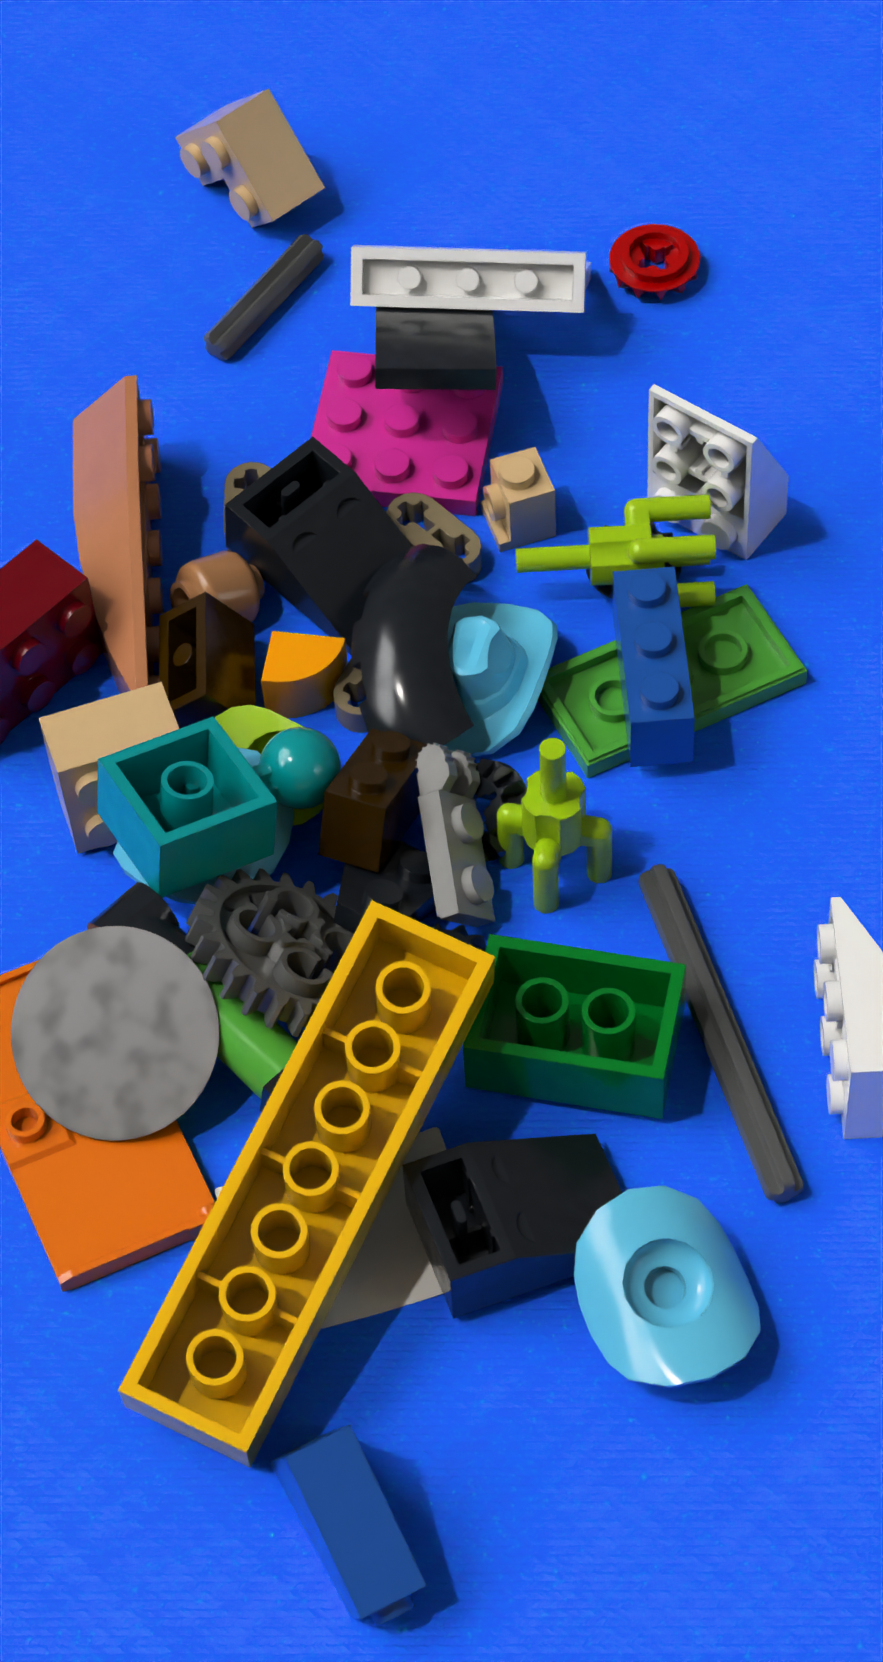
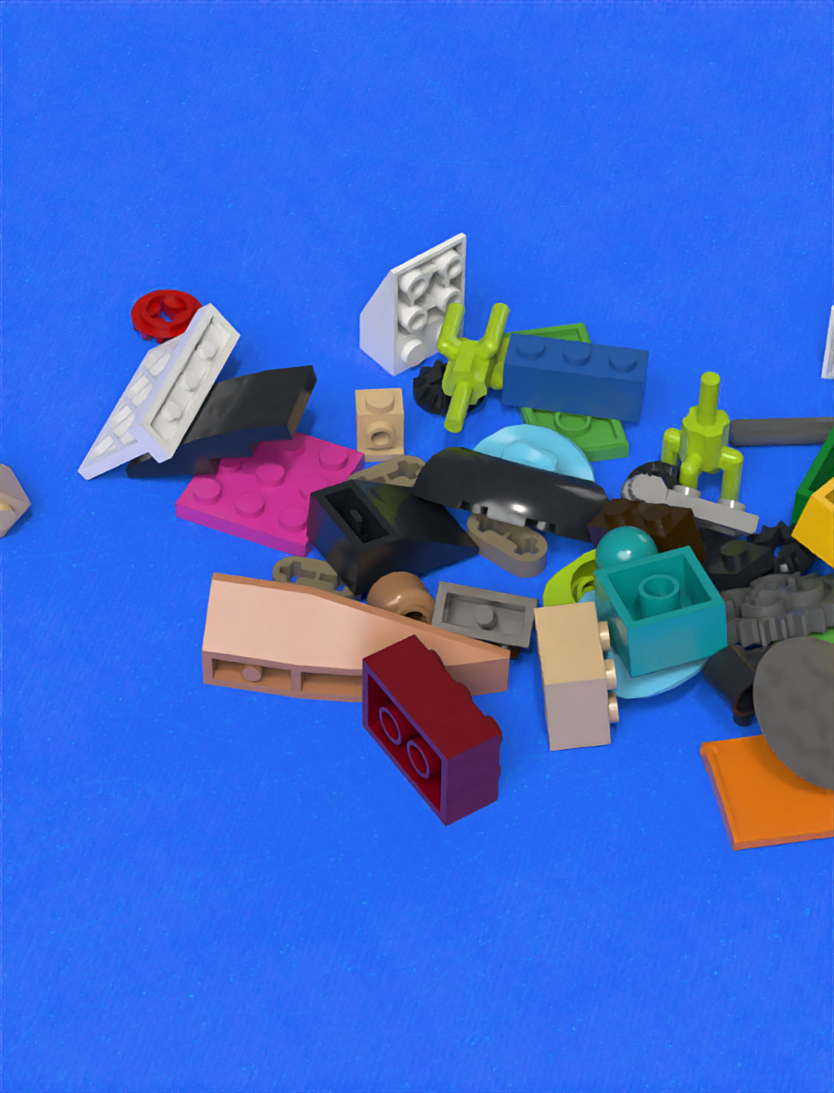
camera: 80 degrees left, 10 degrees down
(263, 297) = (94, 536): dark grey axle -> none
(301, 672) = (496, 566): light orange brick -> none

